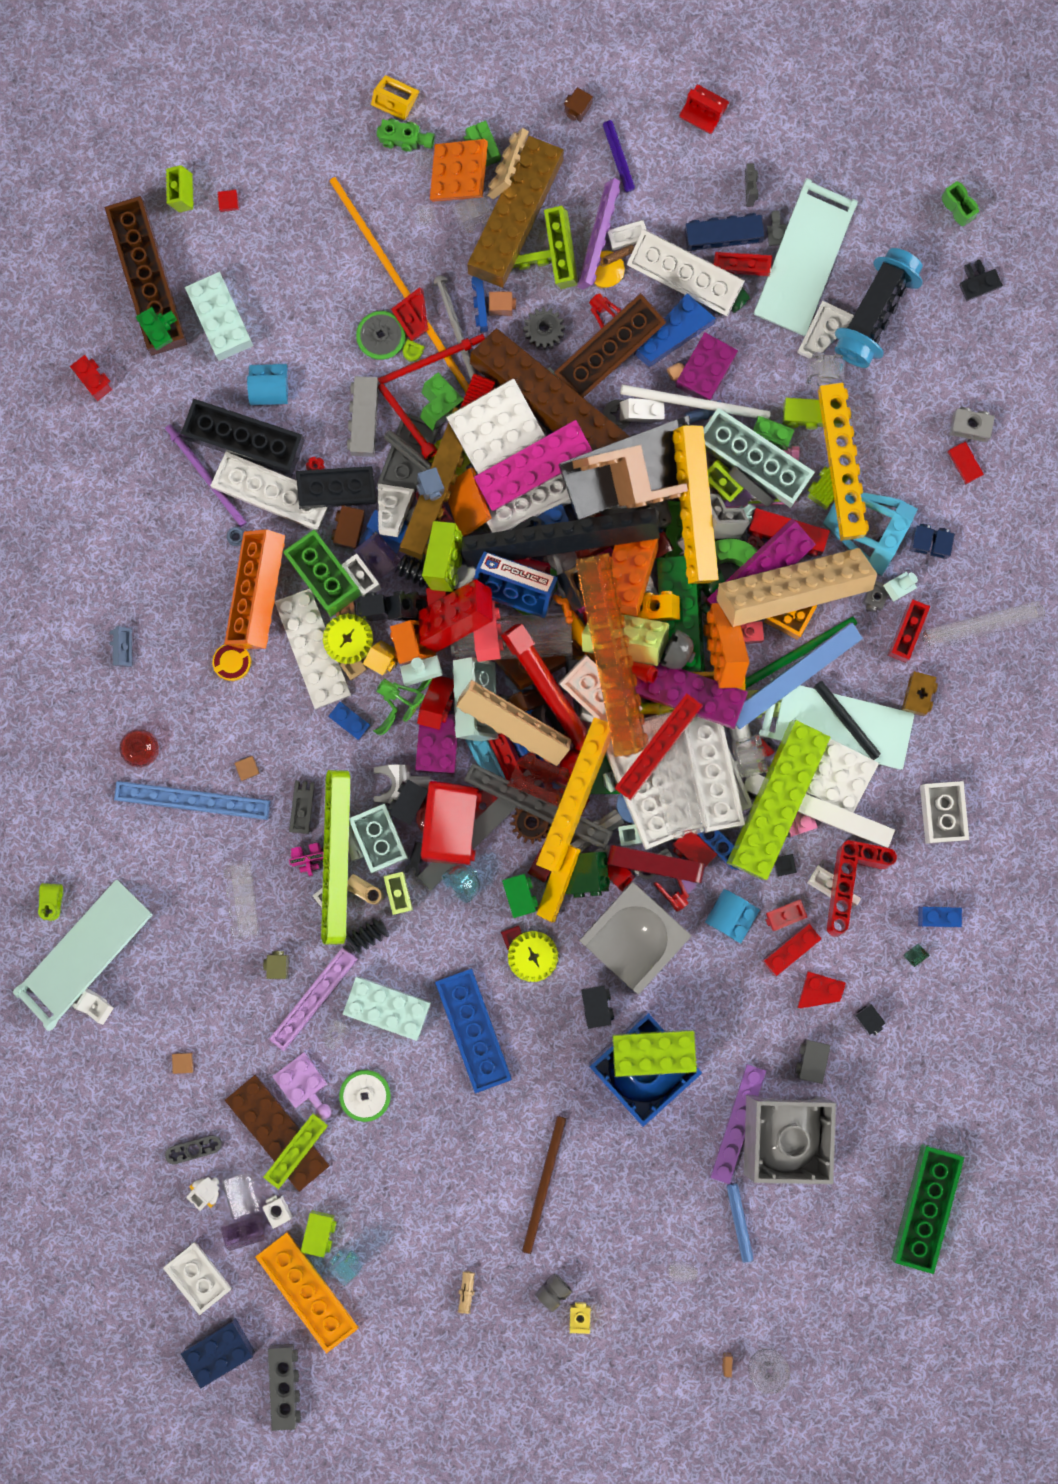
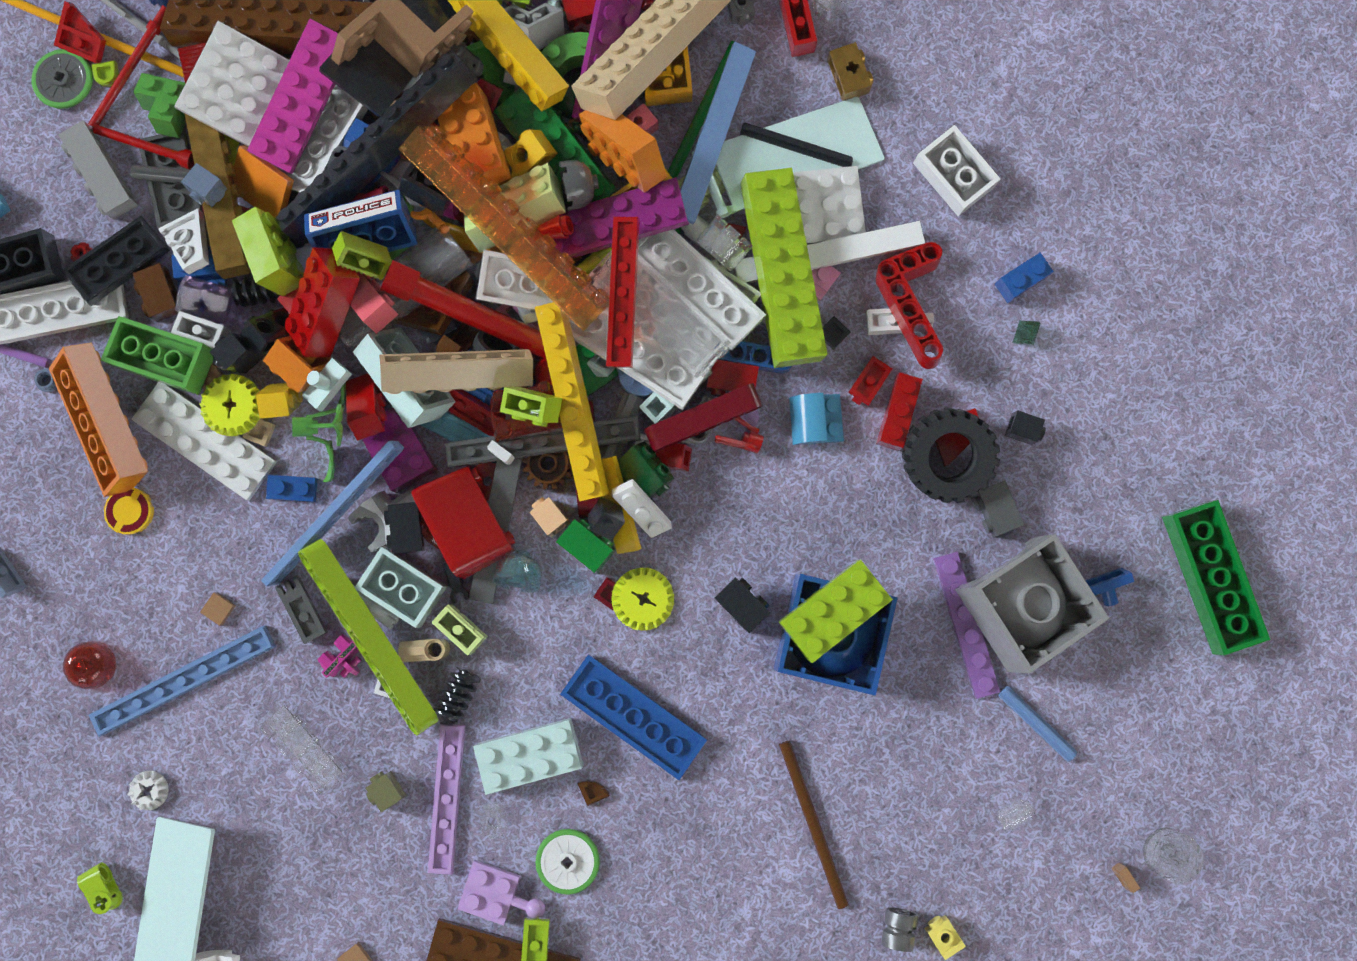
camera: 35 degrees left, 0 degrees up
(129, 863) = (158, 792): none -> white gear
(368, 759) = (334, 511): none -> medium blue tile
(412, 1061) = (592, 791): none -> reddish brown tile
(503, 605) = (361, 255): none -> lime brick
(505, 796) = (500, 452): none -> white tile
(508, 858) = (549, 516): none -> light nougat brick
(545, 887) = (606, 518): none -> black brick
(547, 781) = (531, 405): none -> lime brick
(573, 896) = (641, 508): none -> white plate
(635, 938) = (734, 507): light grey piece -> none
(805, 1028) = (976, 473): none -> black tyre
(851, 1162) = (1107, 582): none -> blue tile

